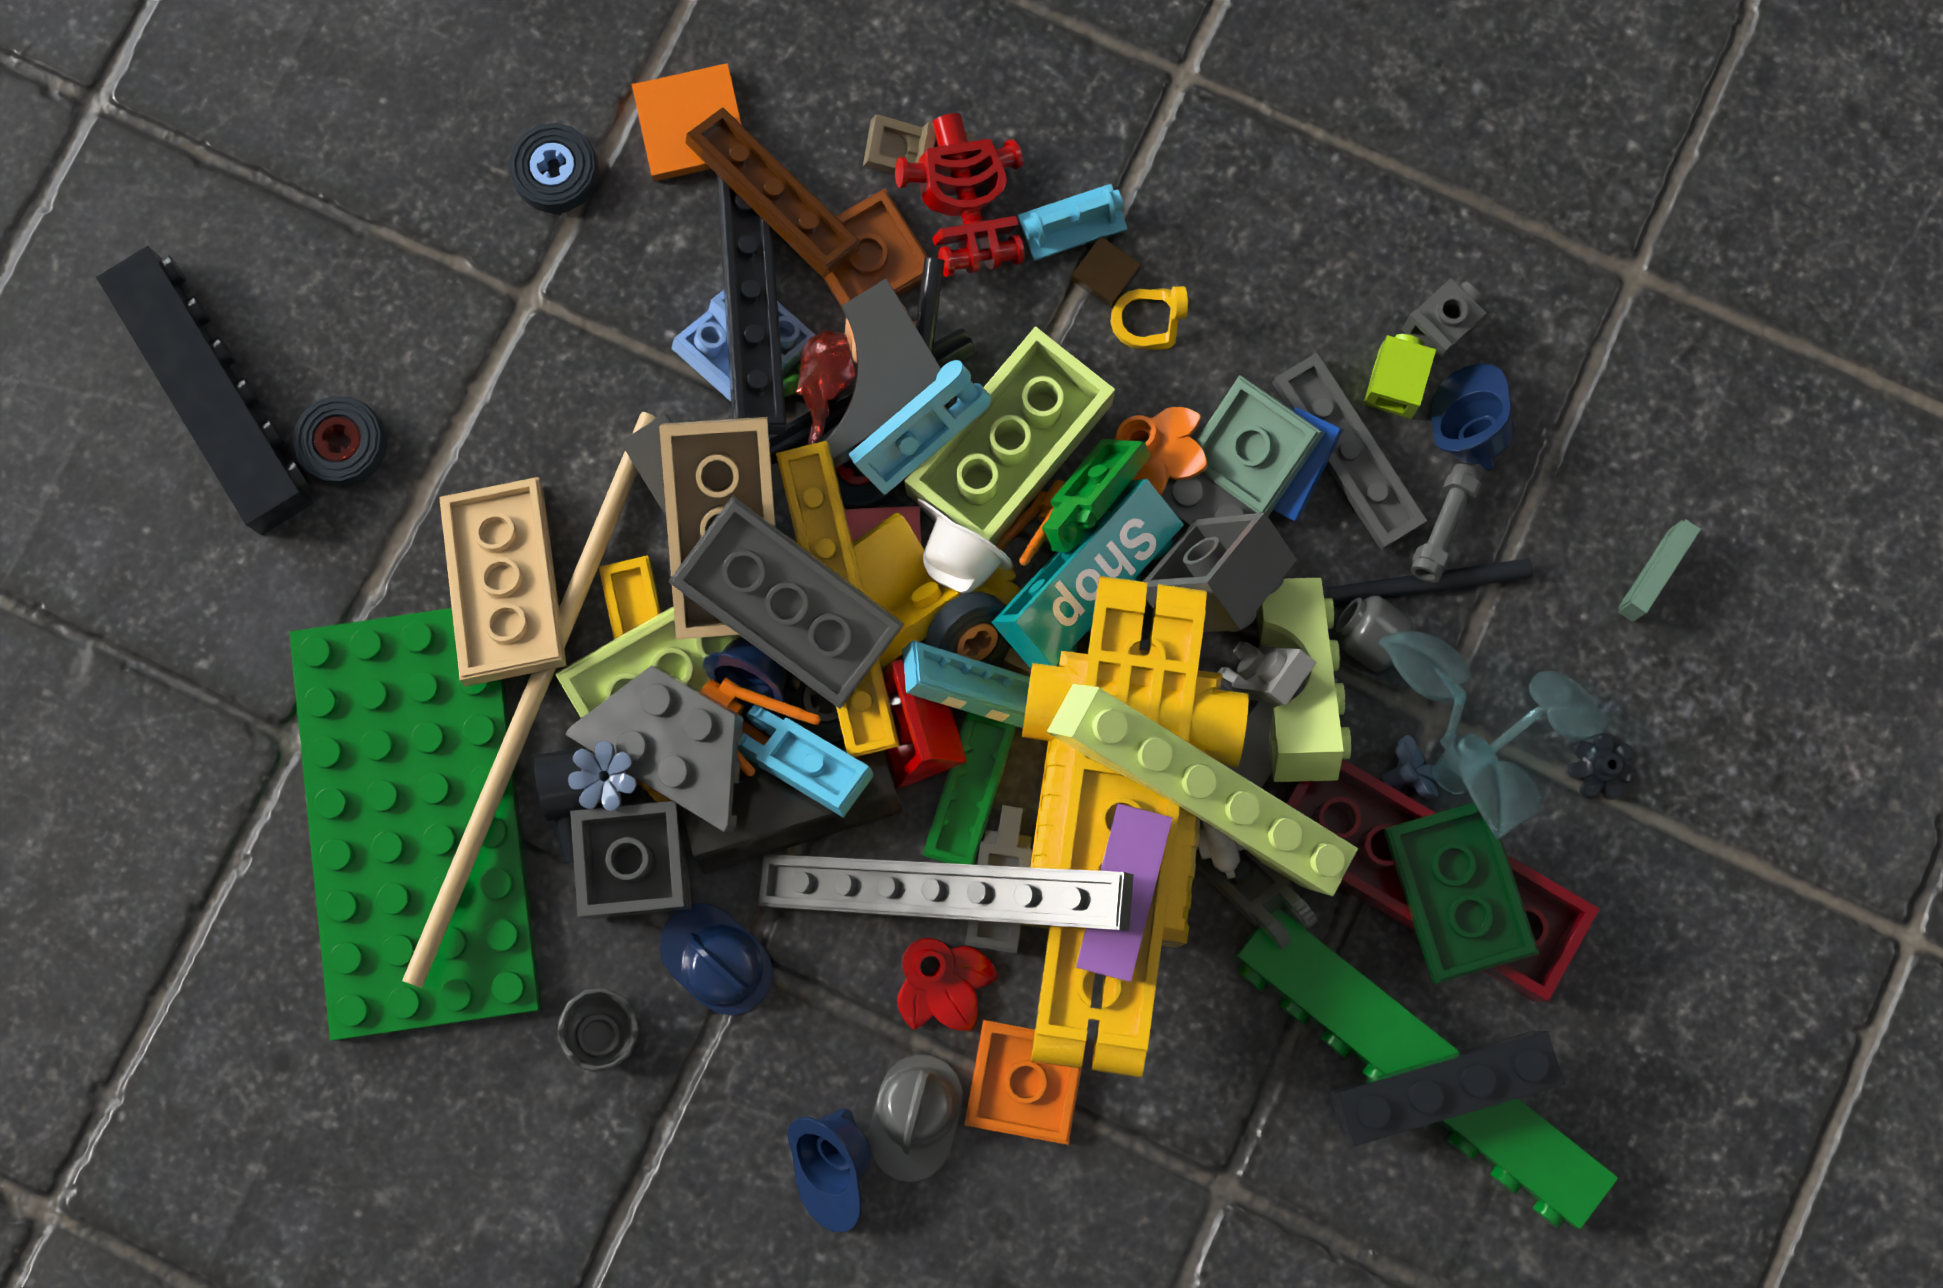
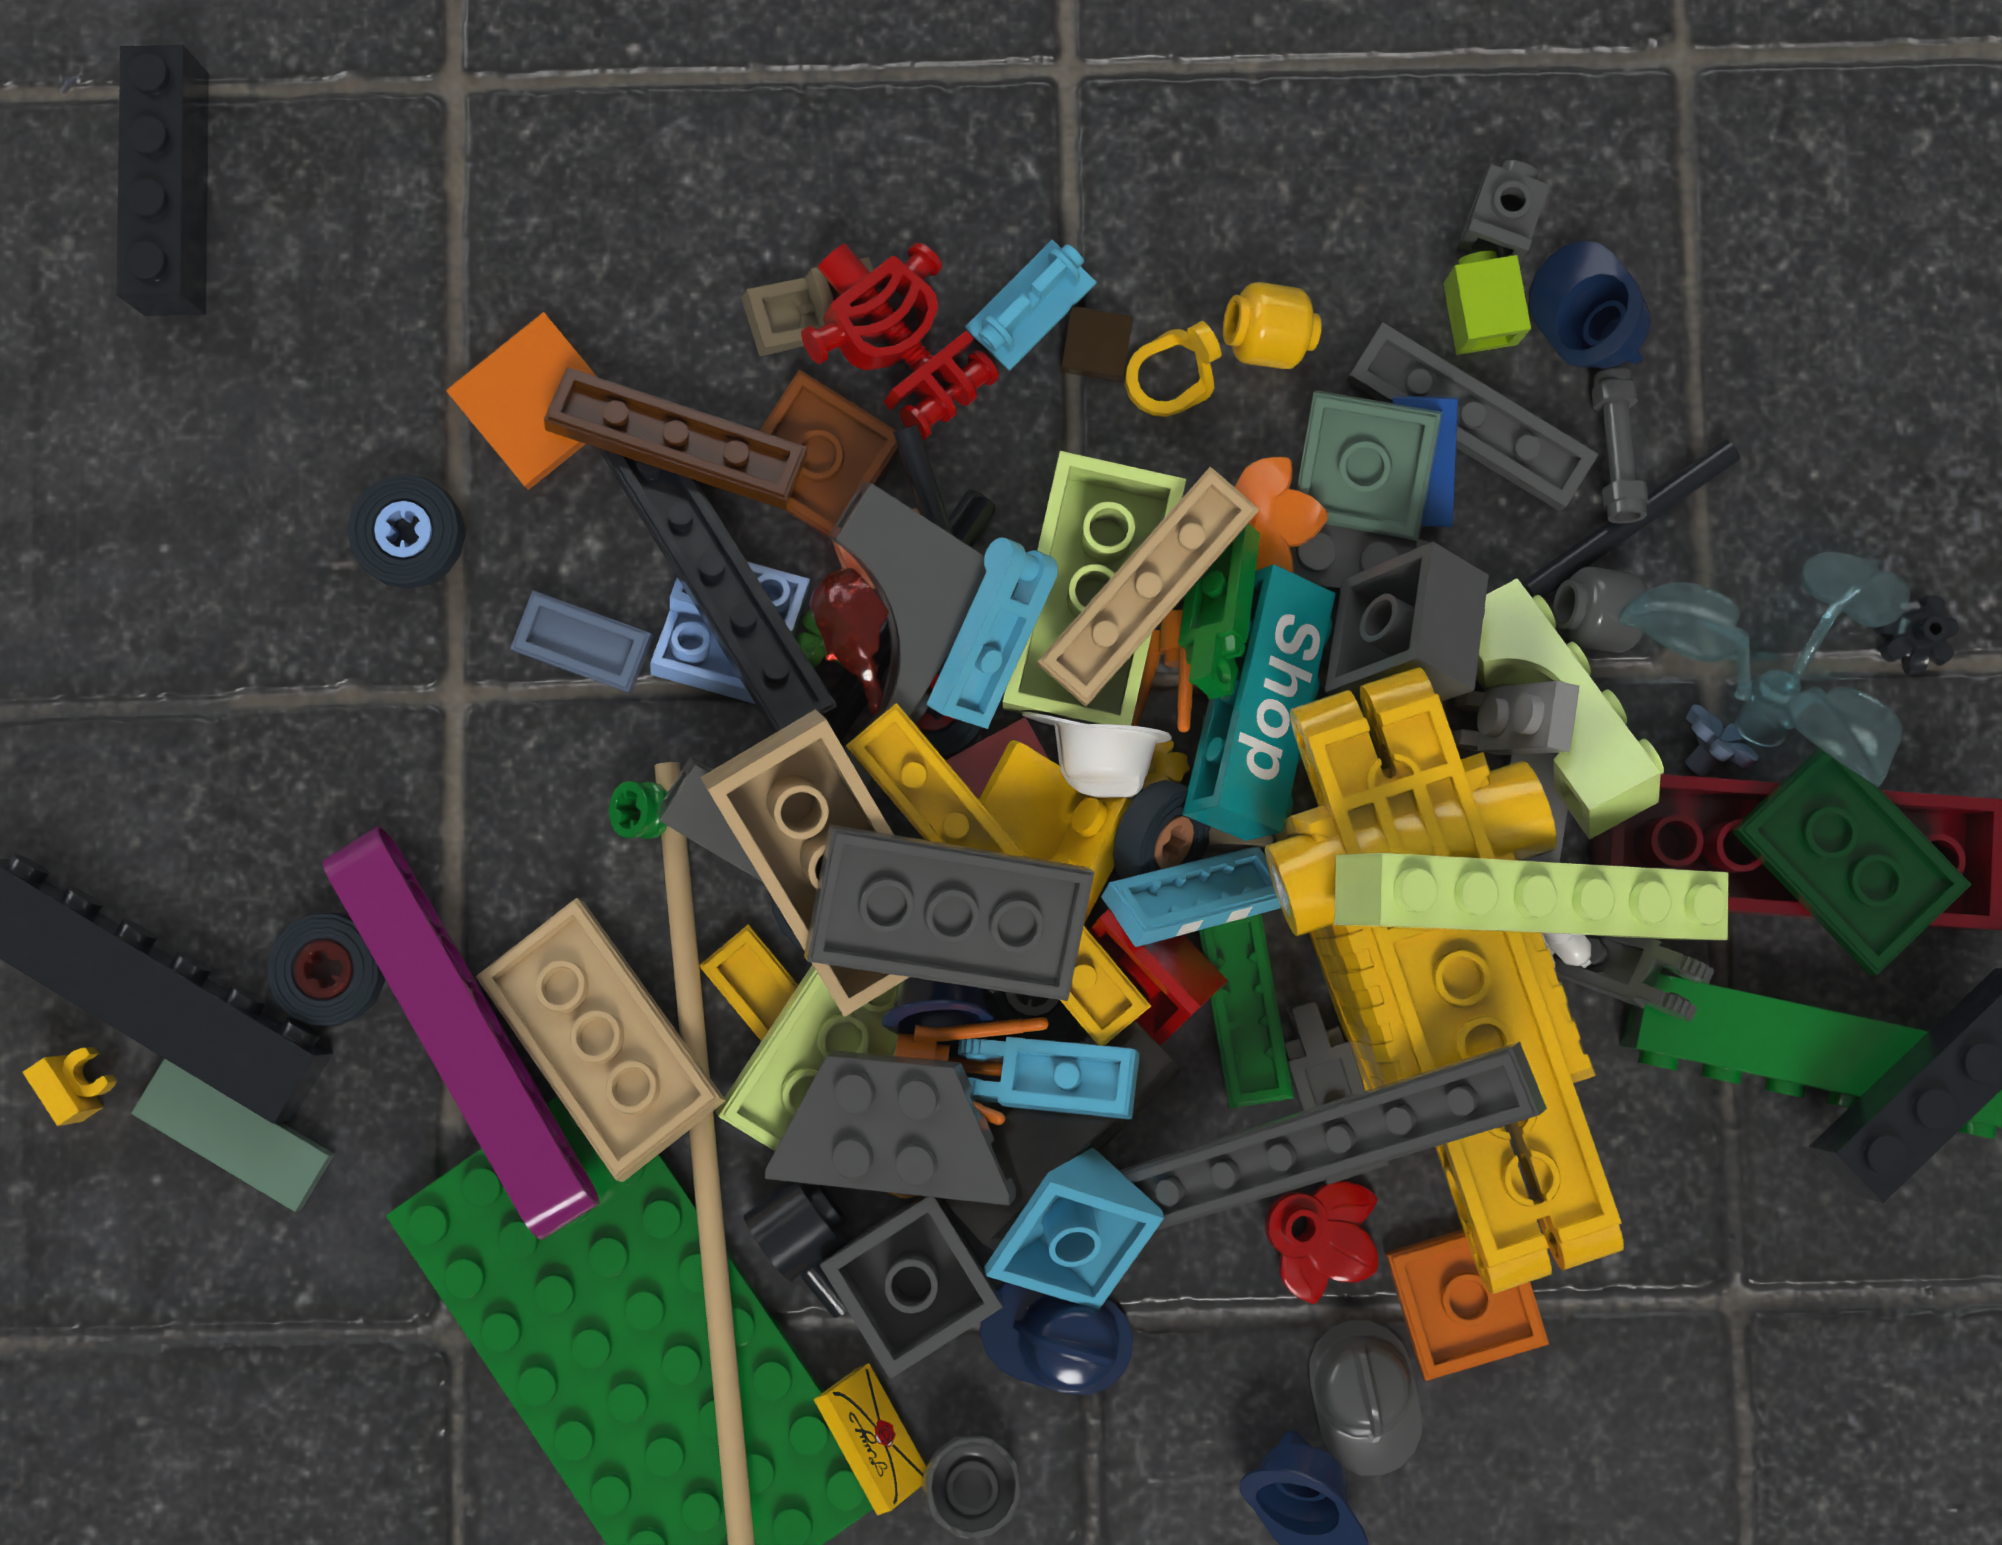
camera: 30 degrees left, 5 degrees up
(117, 432) = (64, 1089): none -> yellow tile
(215, 524) = (233, 1137): none -> sand green tile
(407, 528) = (461, 1033): none -> magenta beam
(545, 960) = (872, 1438): none -> yellow tile
(602, 776) = (837, 1209): sand blue plant -> none
(608, 433) = (634, 810): none -> green bush
(635, 303) = (582, 642): none -> sand blue tile
(763, 881) = (1077, 1233): none -> medium azure slope
(1048, 449) = (1148, 586): none -> tan tile
(1134, 848) = (1498, 1012): medium lavender tile -> none
(1235, 317) = (1271, 325): none -> yellow head
(1658, 570) = (1876, 384): sand green tile -> none

